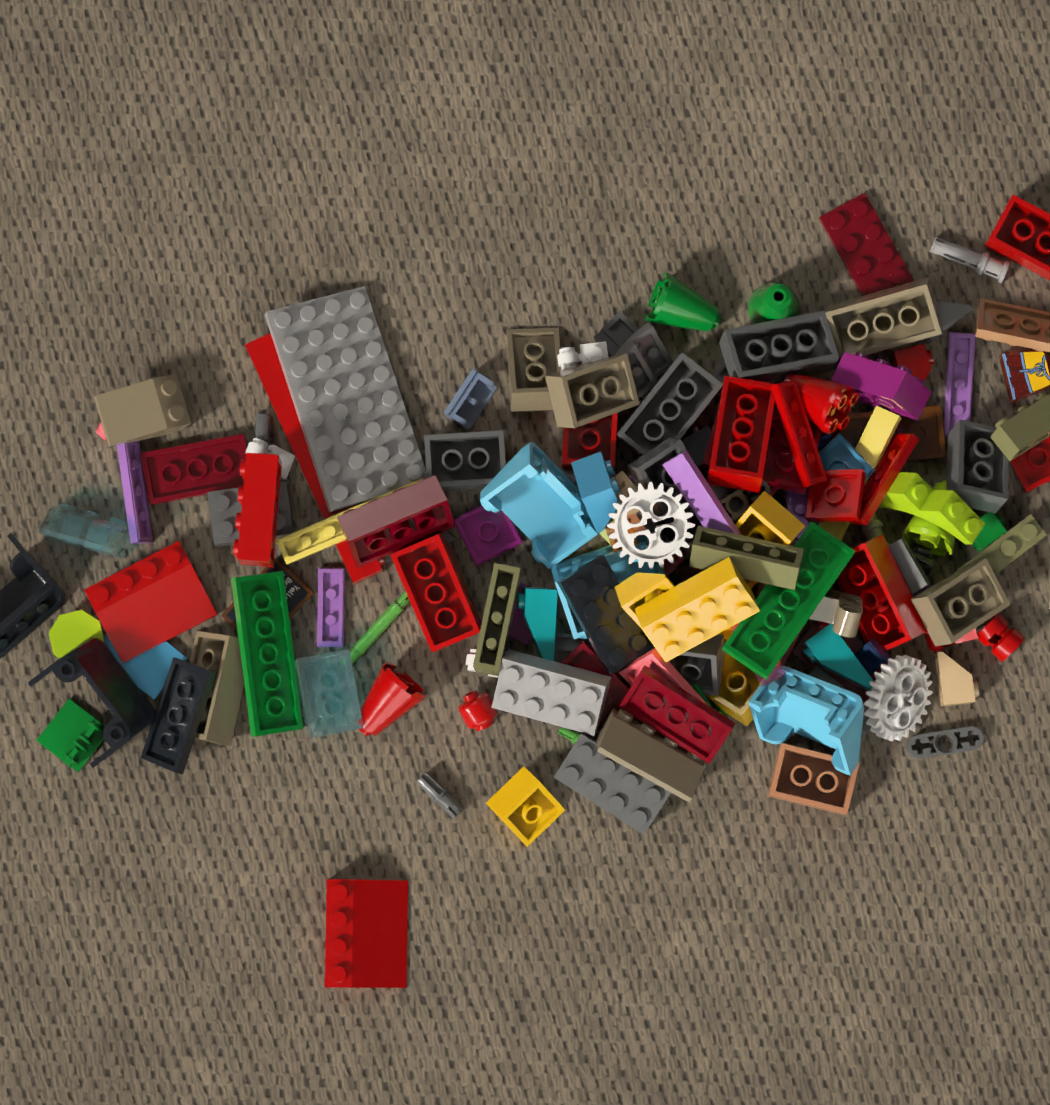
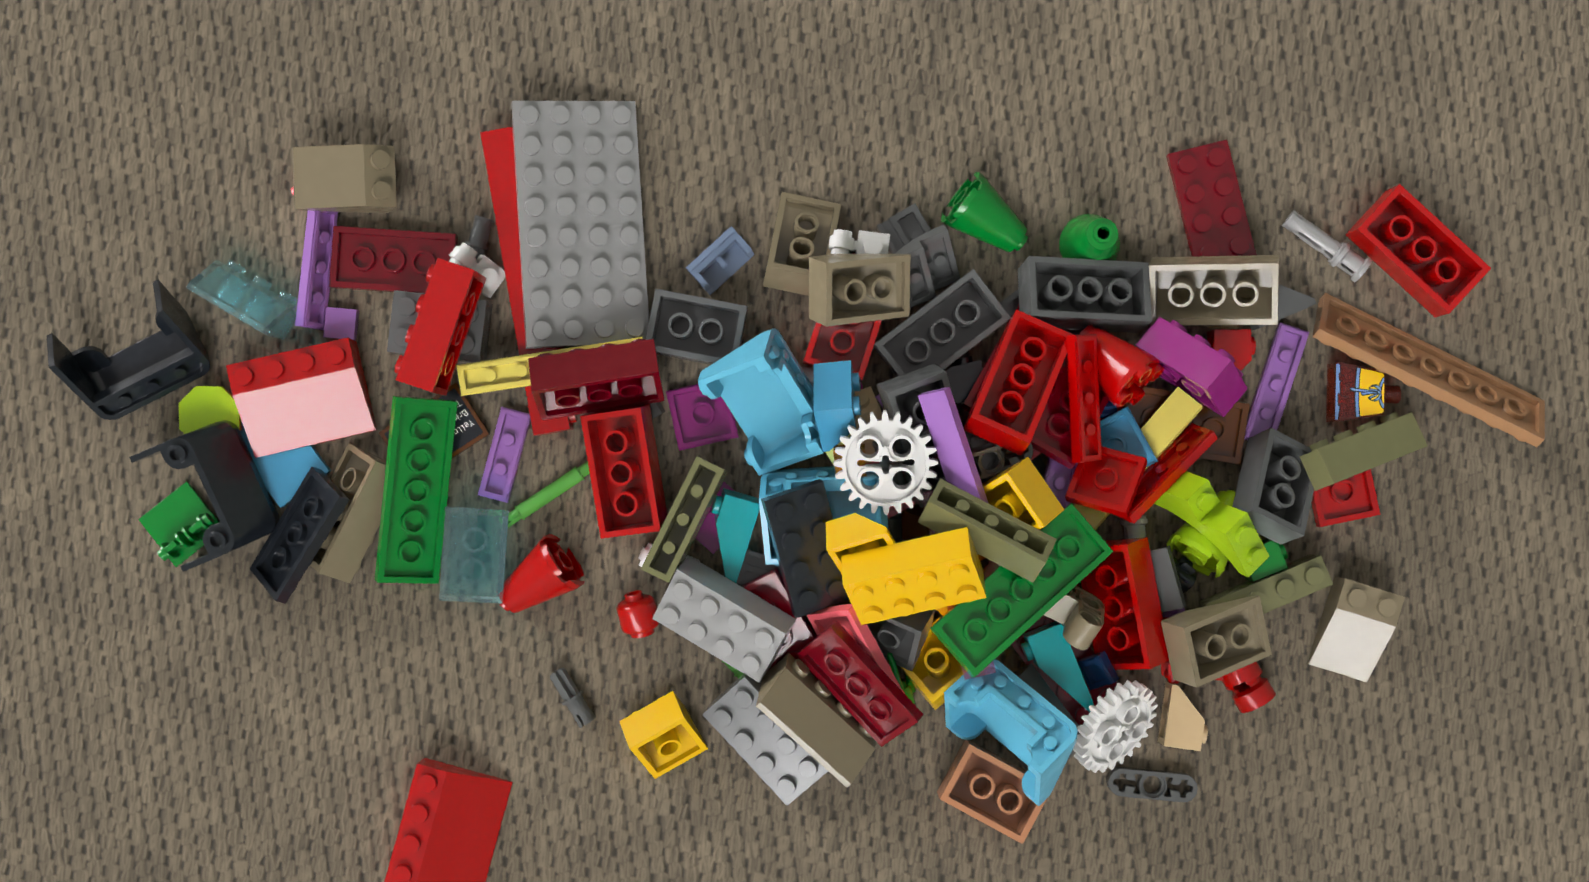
camera: 15 degrees right, 5 degrees up
(165, 532) = (341, 323): none -> medium lavender tile

